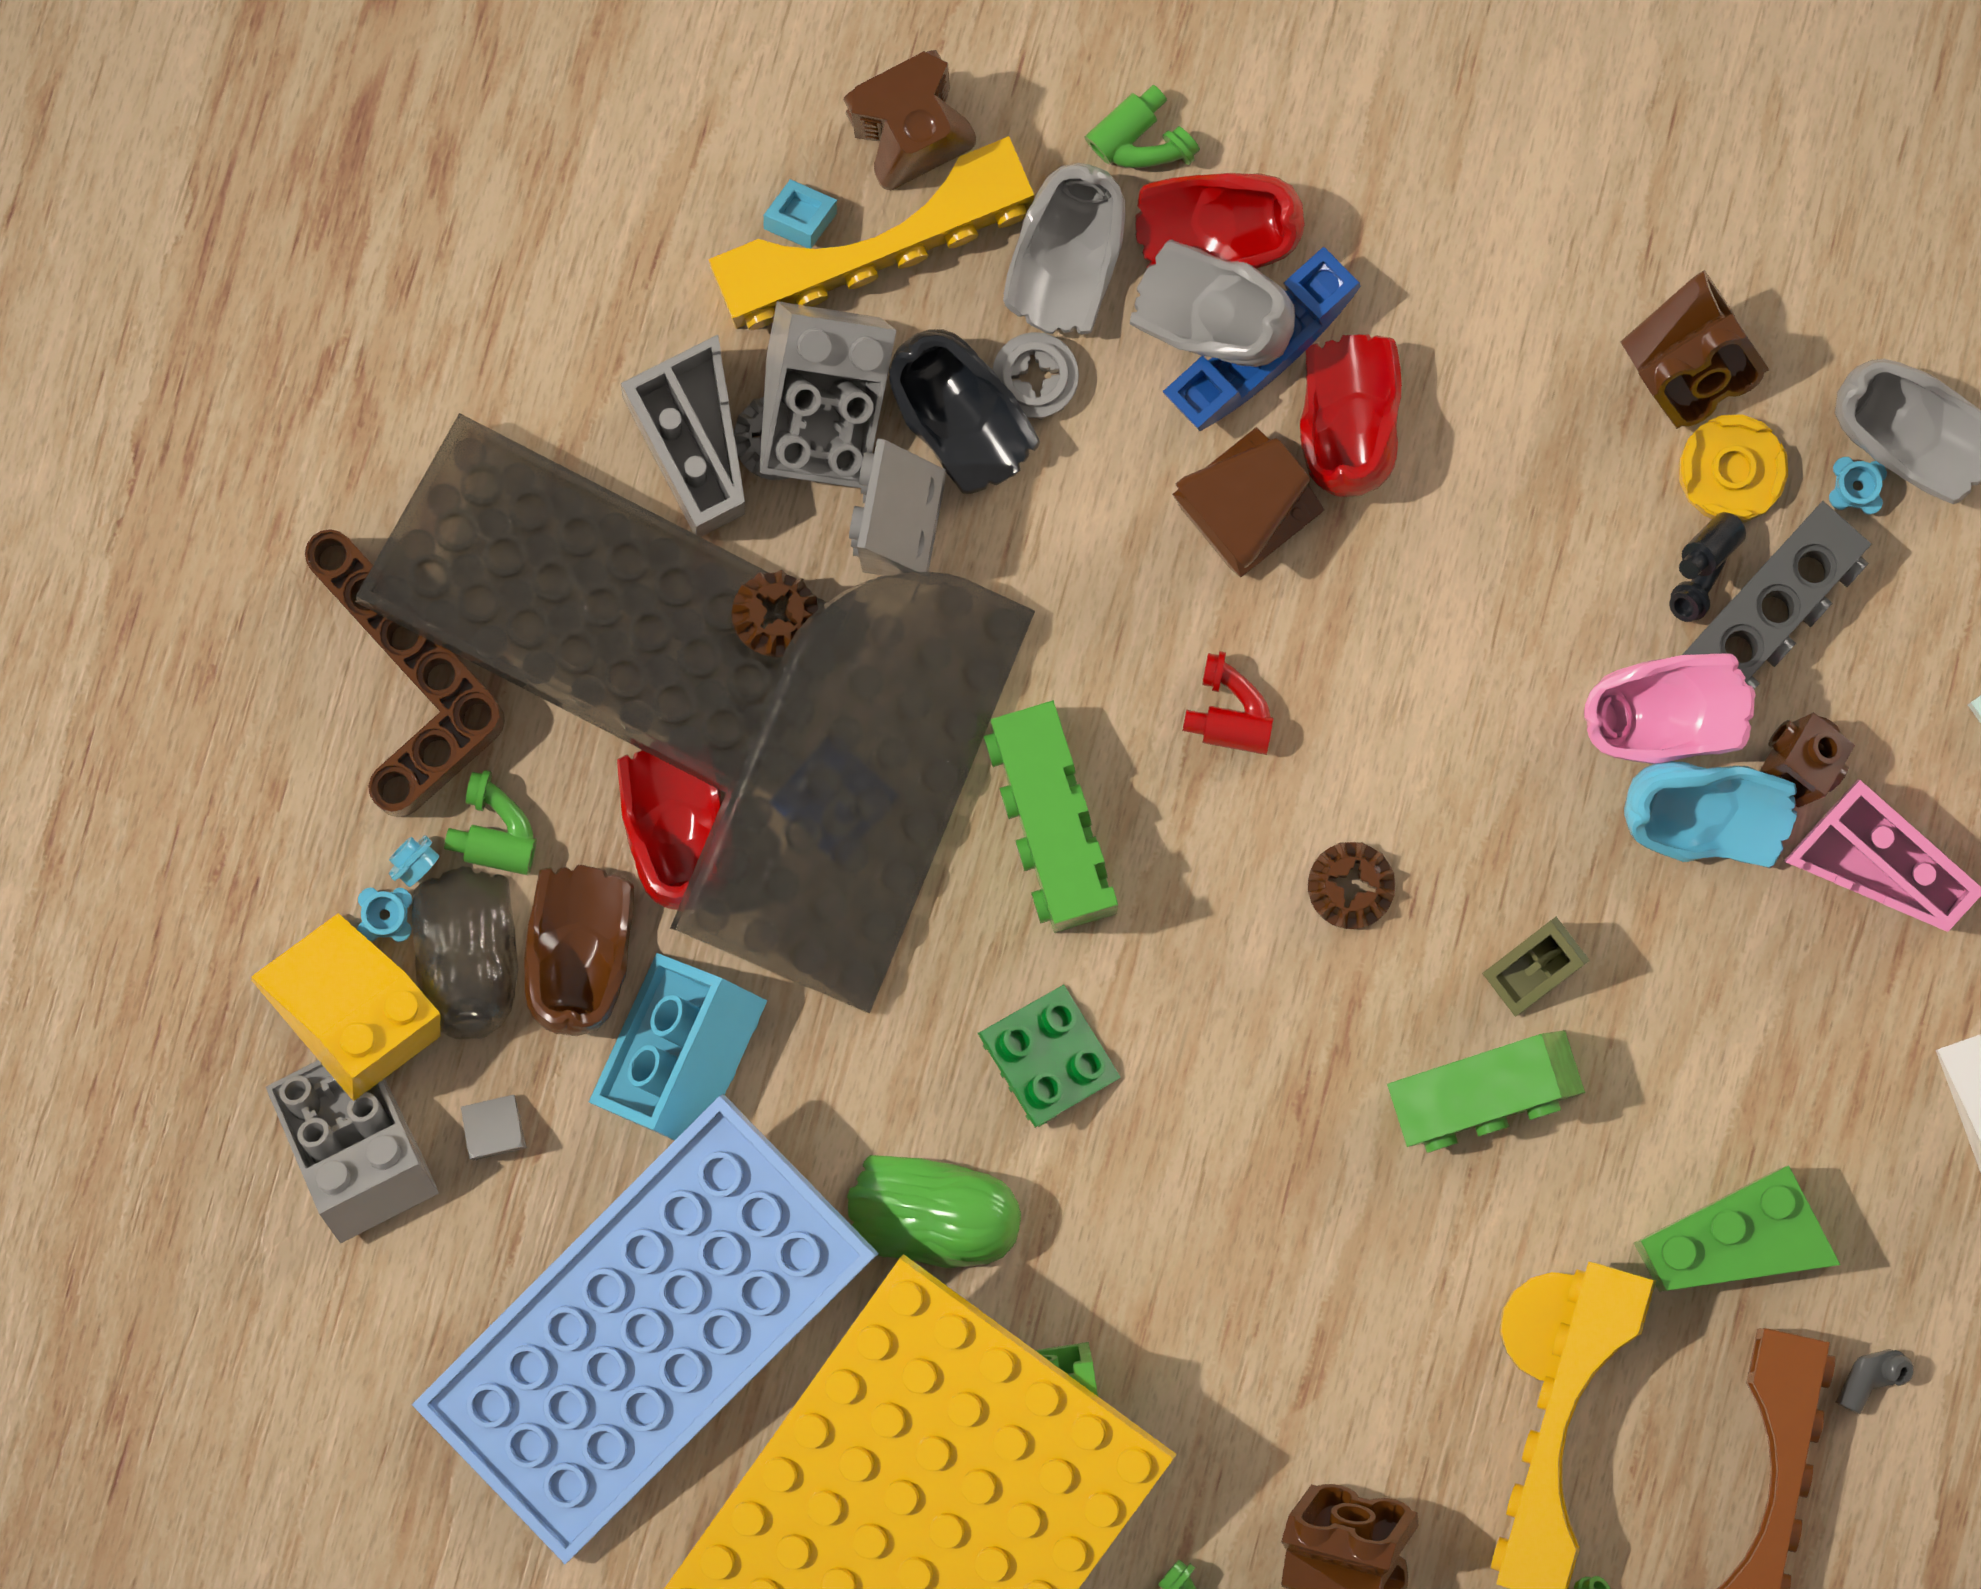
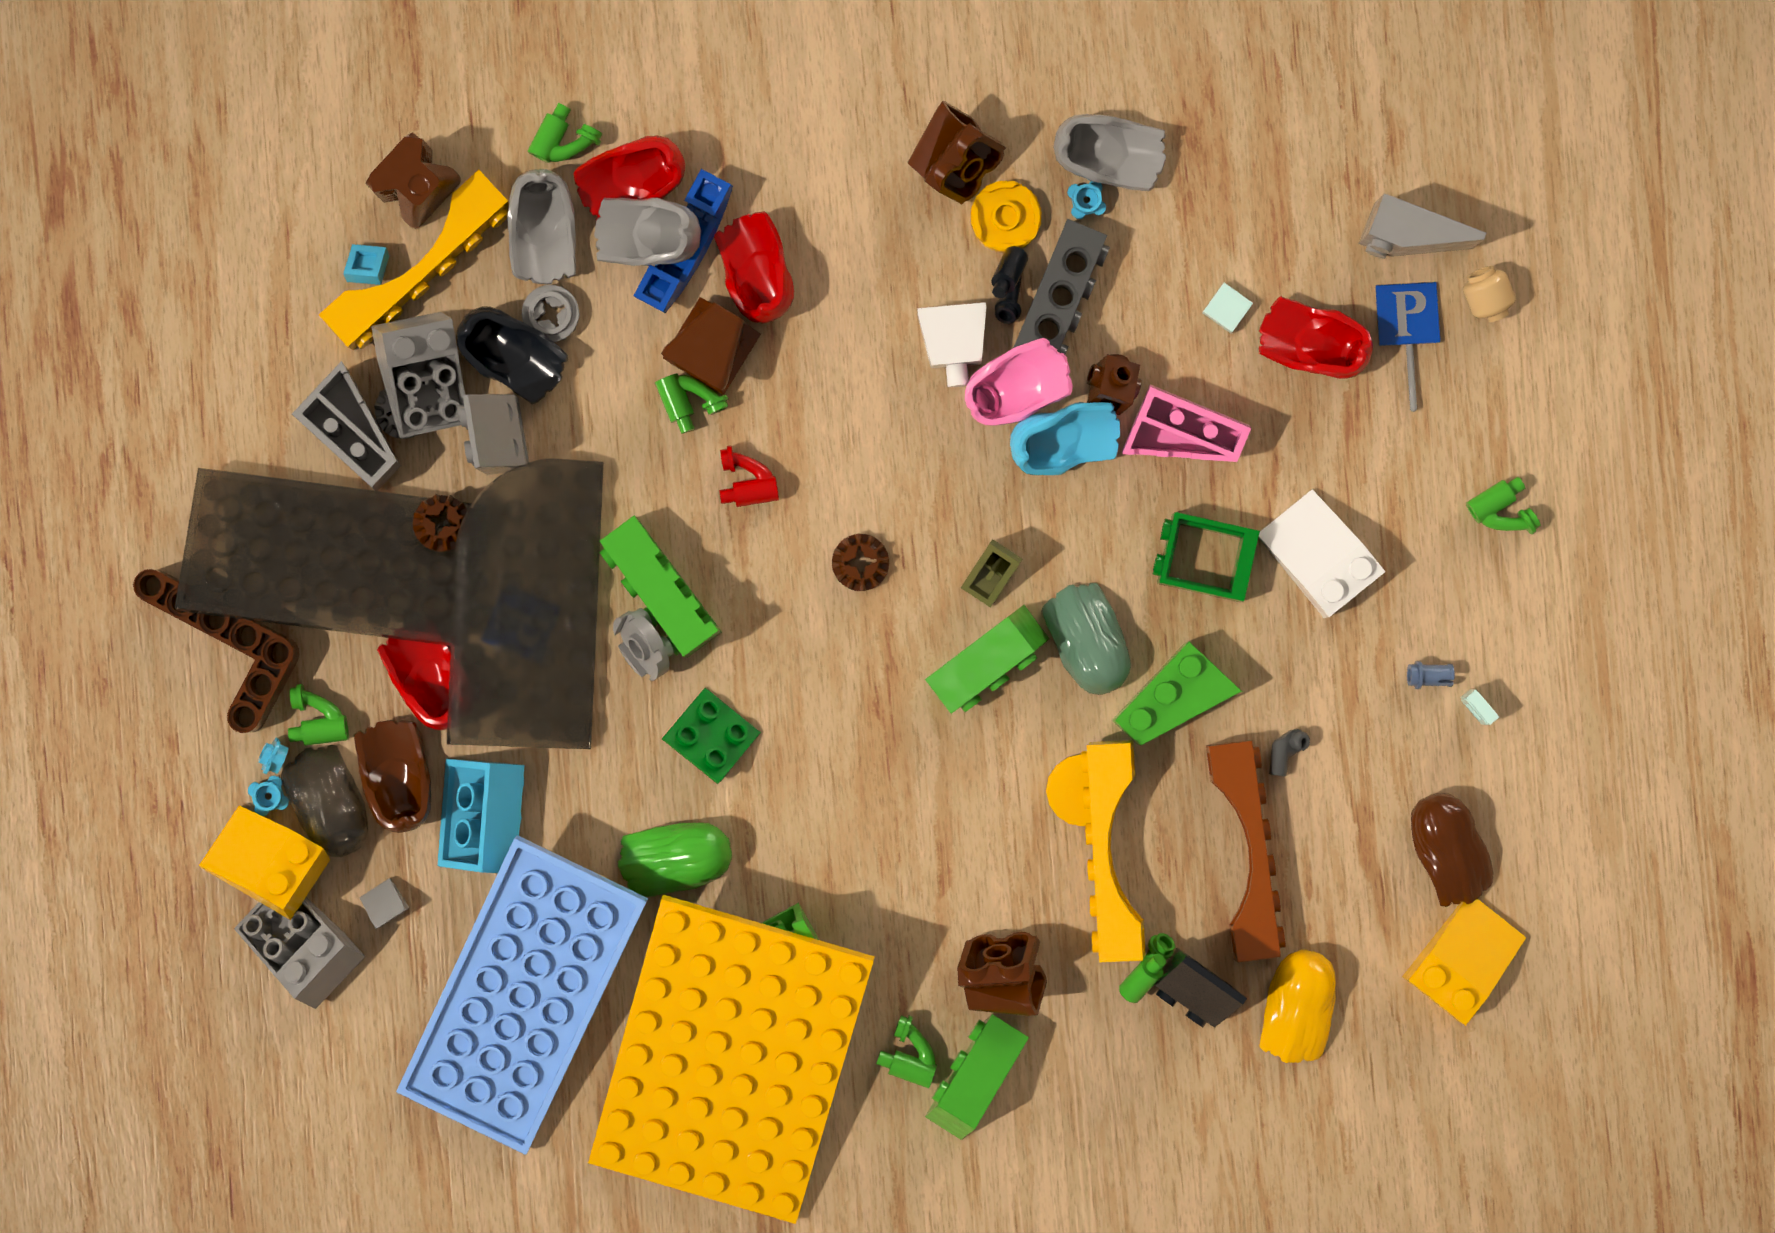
camera: 20 degrees left, 5 degrees up
(1000, 889) = (642, 644): none -> light grey plate
(1169, 565) = (677, 405): none -> bright green plant
(1598, 613) = (953, 338): none -> white torso
(1642, 1111) = (1088, 638): none -> sand green hair
(1903, 1084) = (1242, 565): none -> green window

